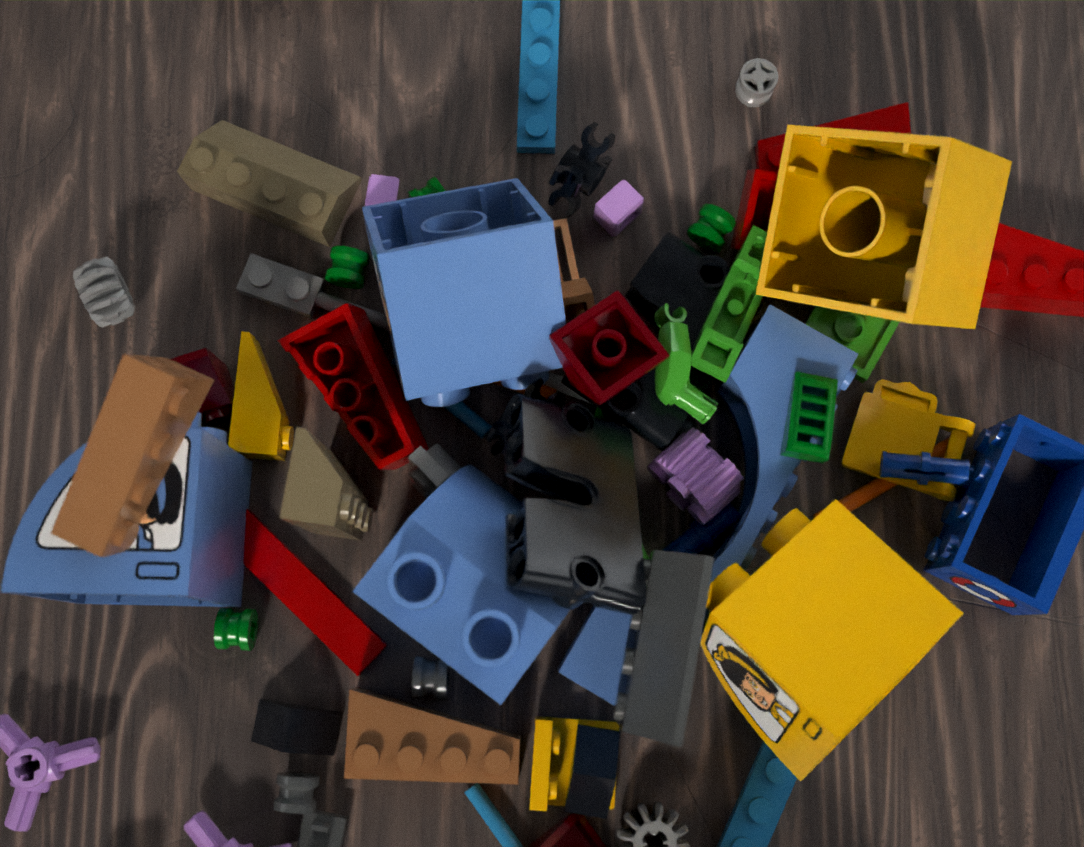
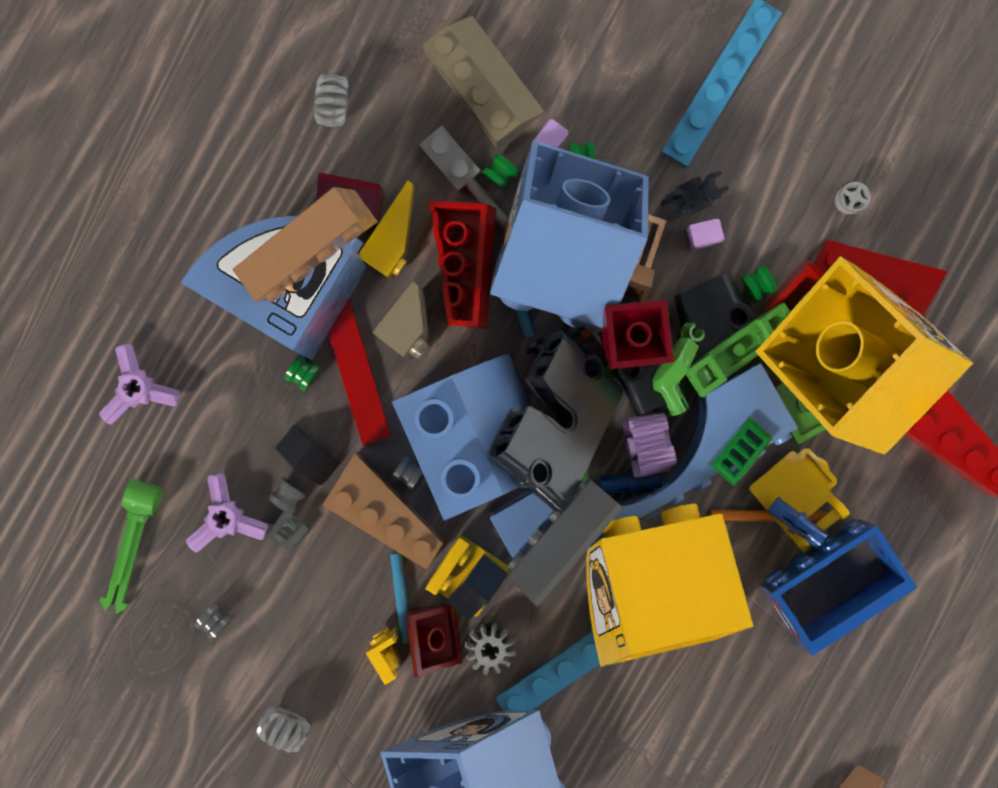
camera: 30 degrees right, 10 degrees up
(430, 468) = (482, 344): light grey plate -> none

